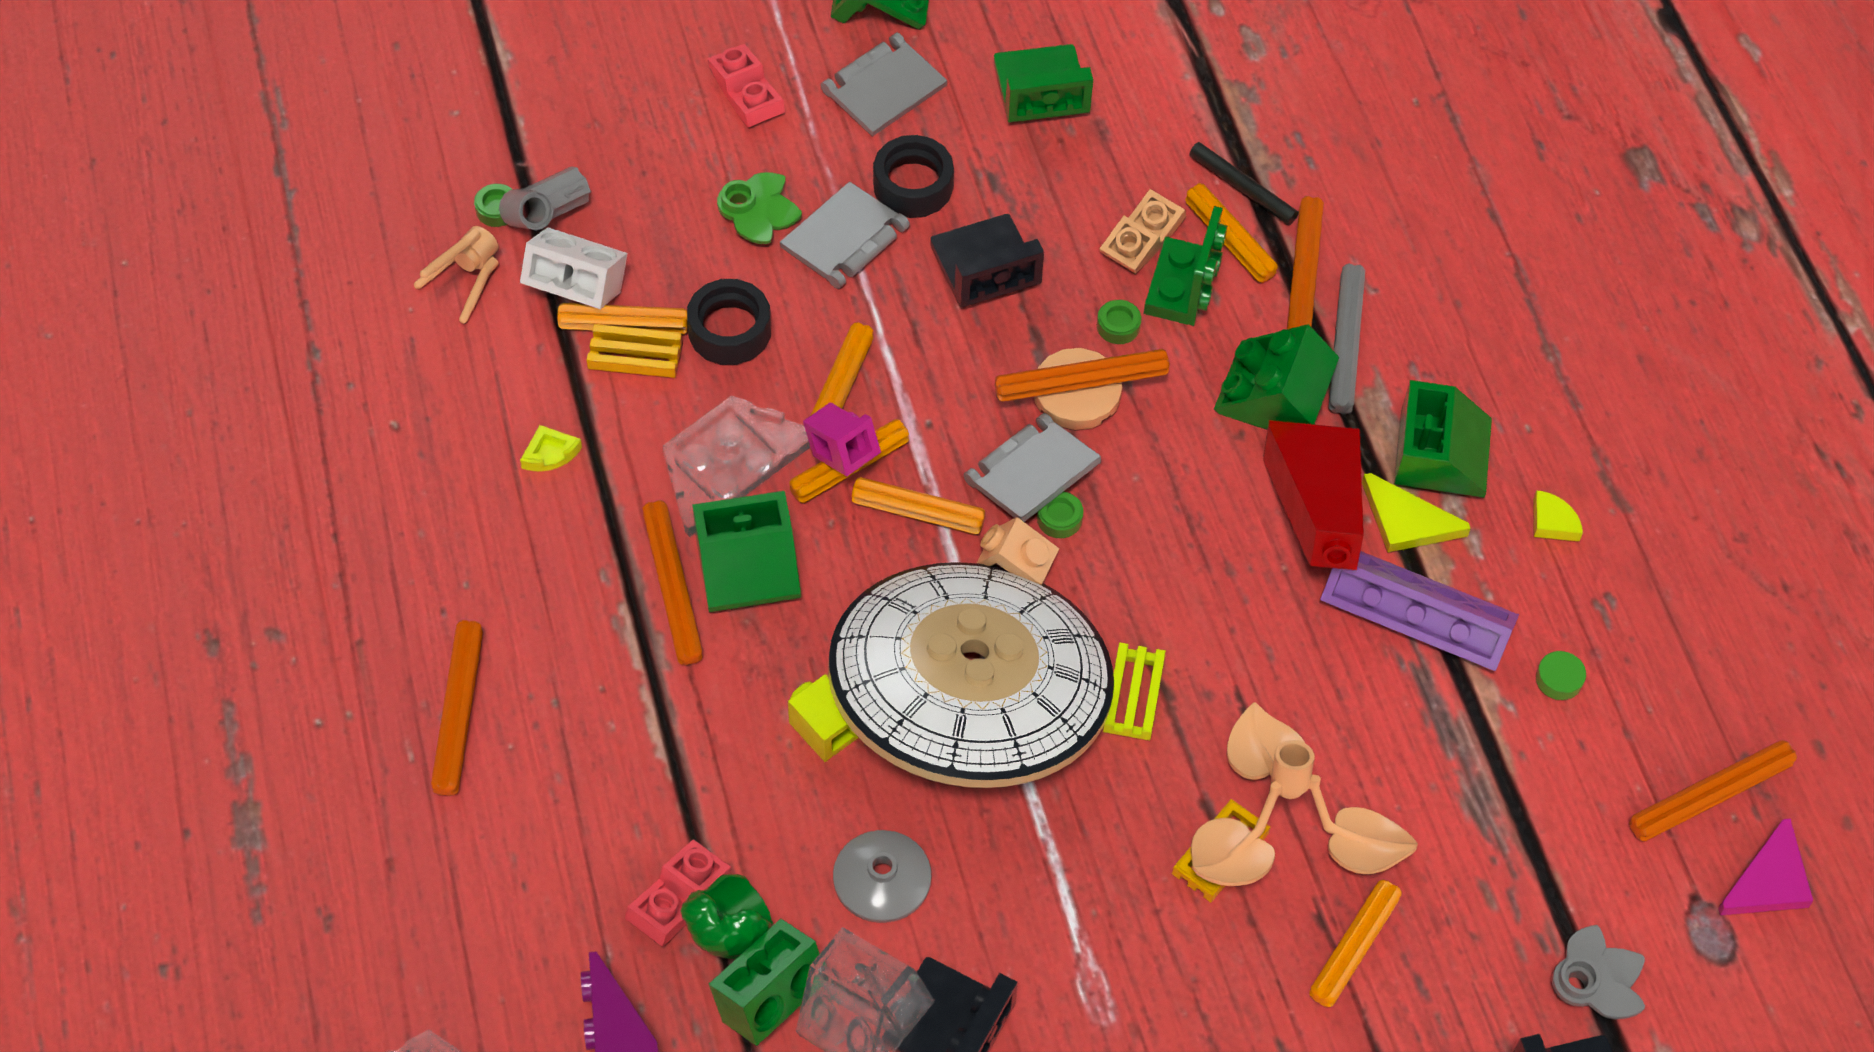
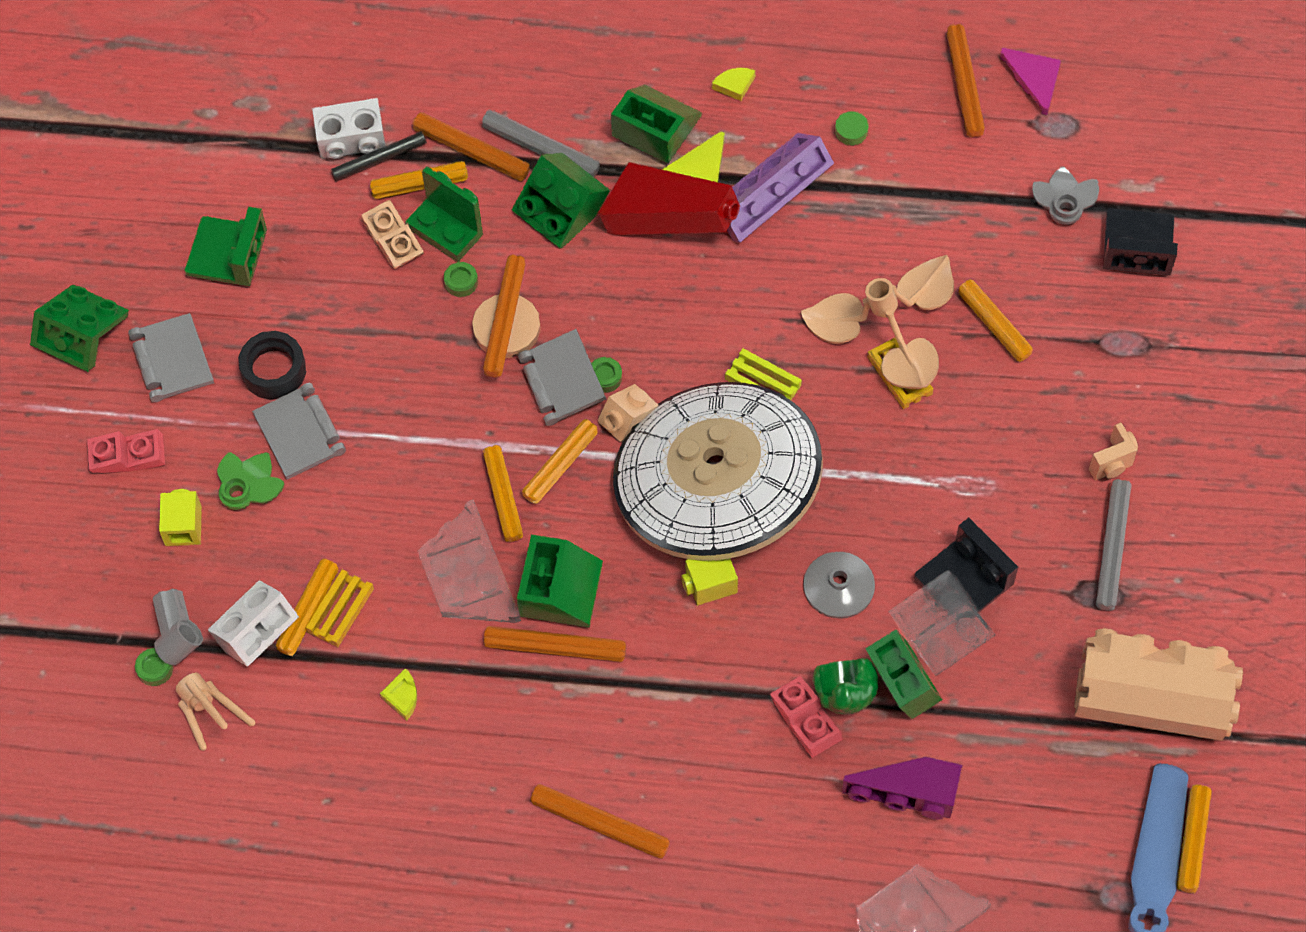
camera: 65 degrees left, 5 degrees up
(681, 159) = (180, 518): none -> neon yellow brick
(729, 349) = (347, 508): black tyre -> none
(841, 438) = (495, 486): dark pink brick -> none
(845, 366) = (429, 474): light orange axle -> none
(988, 260) = (370, 342): black bracket -> none
(1260, 137) = (348, 122): none -> white brick

